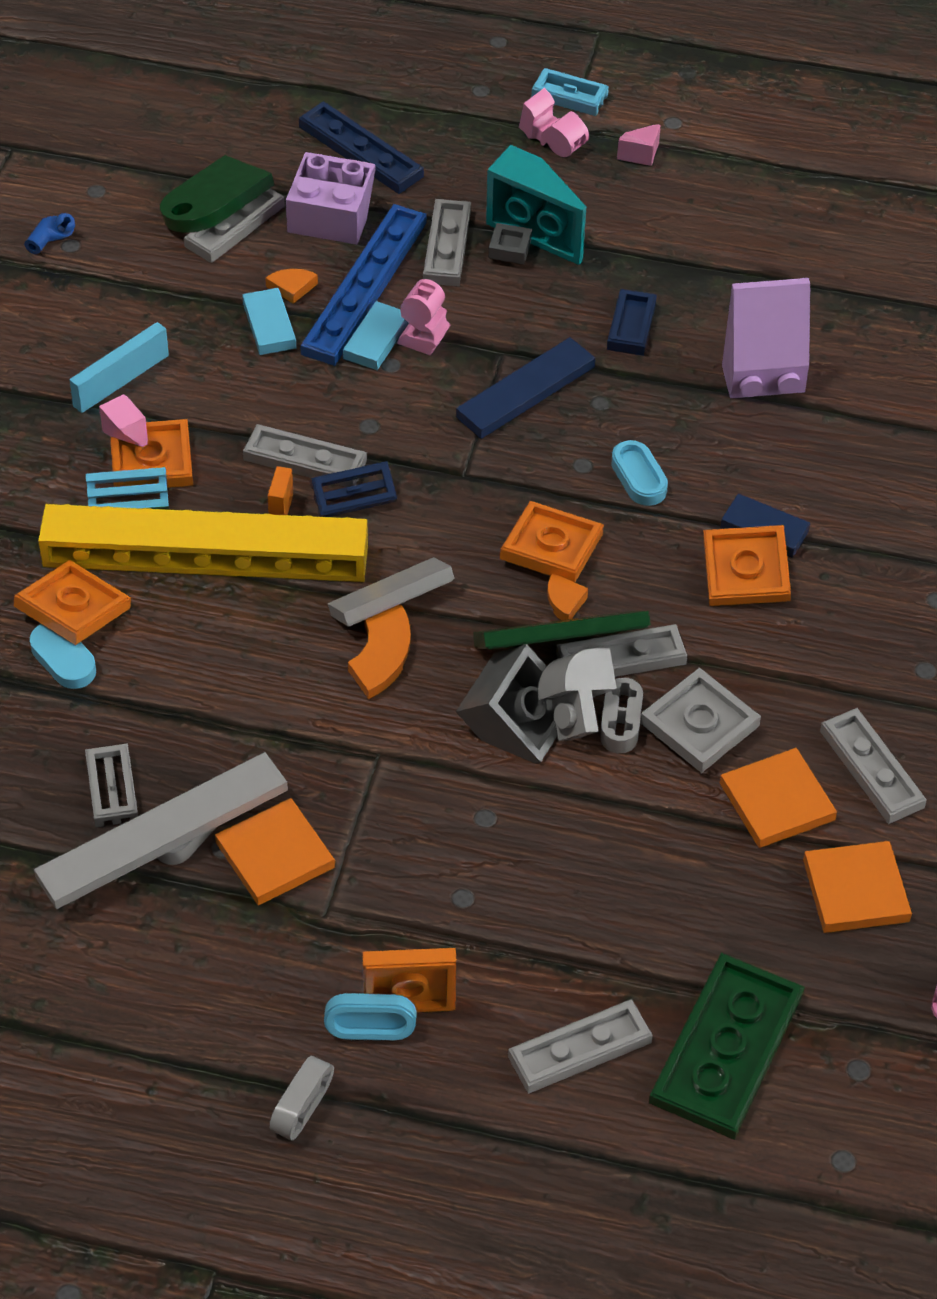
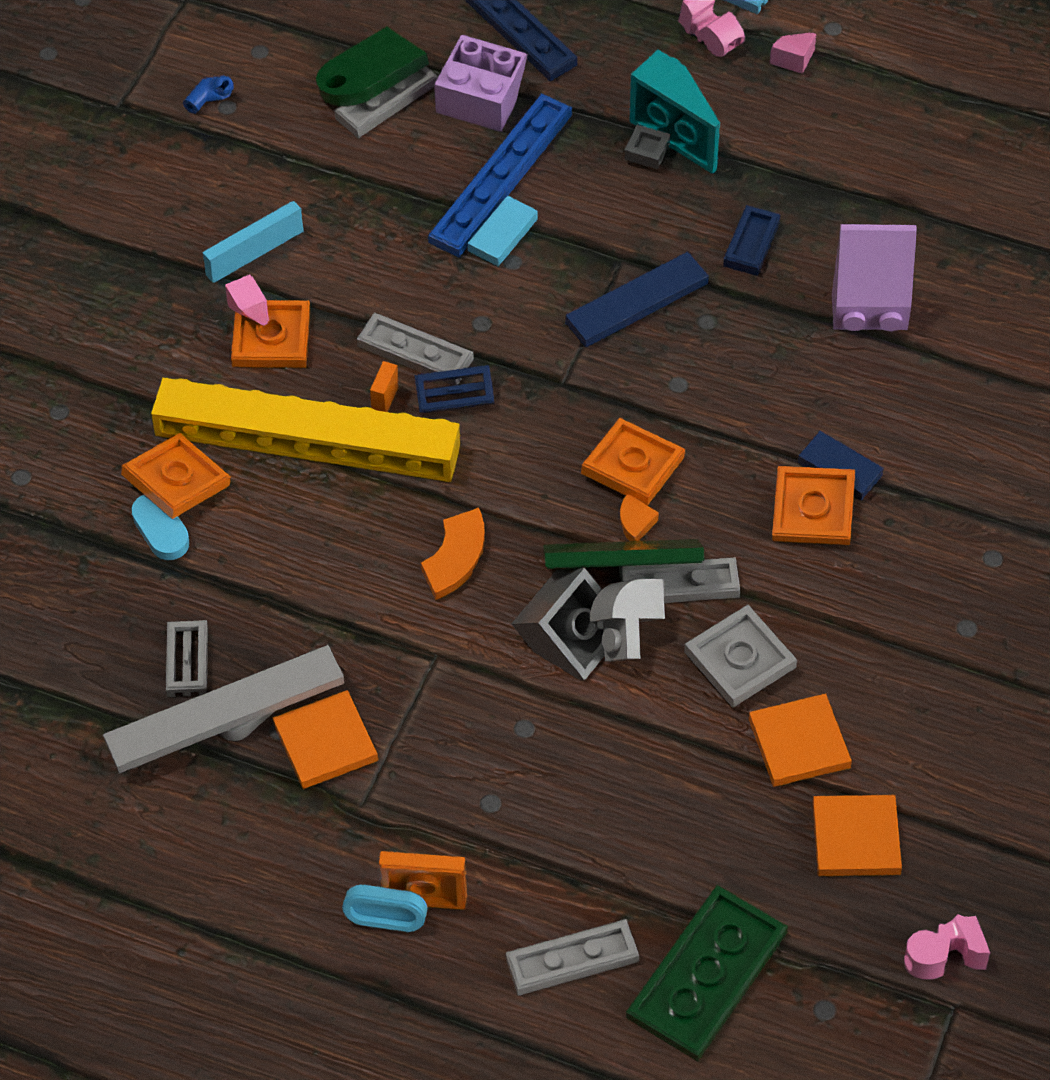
camera: 10 degrees right, 5 degrees up
(129, 475) = (275, 369): medium azure tile -> none
(269, 321) = (403, 206): medium azure tile -> none
(292, 283) = (431, 168): orange tile -> none
(301, 1097) = (311, 976): light grey beam -> none
(391, 591) = (472, 496): light grey tile -> none
(425, 317) = (549, 219): bright pink leg -> none
(447, 242) = (587, 138): light grey tile -> none
(629, 716) = (676, 644): light grey beam -> none
(639, 473) = (730, 398): medium azure tile -> none
(873, 765) = (896, 718): light grey tile -> none

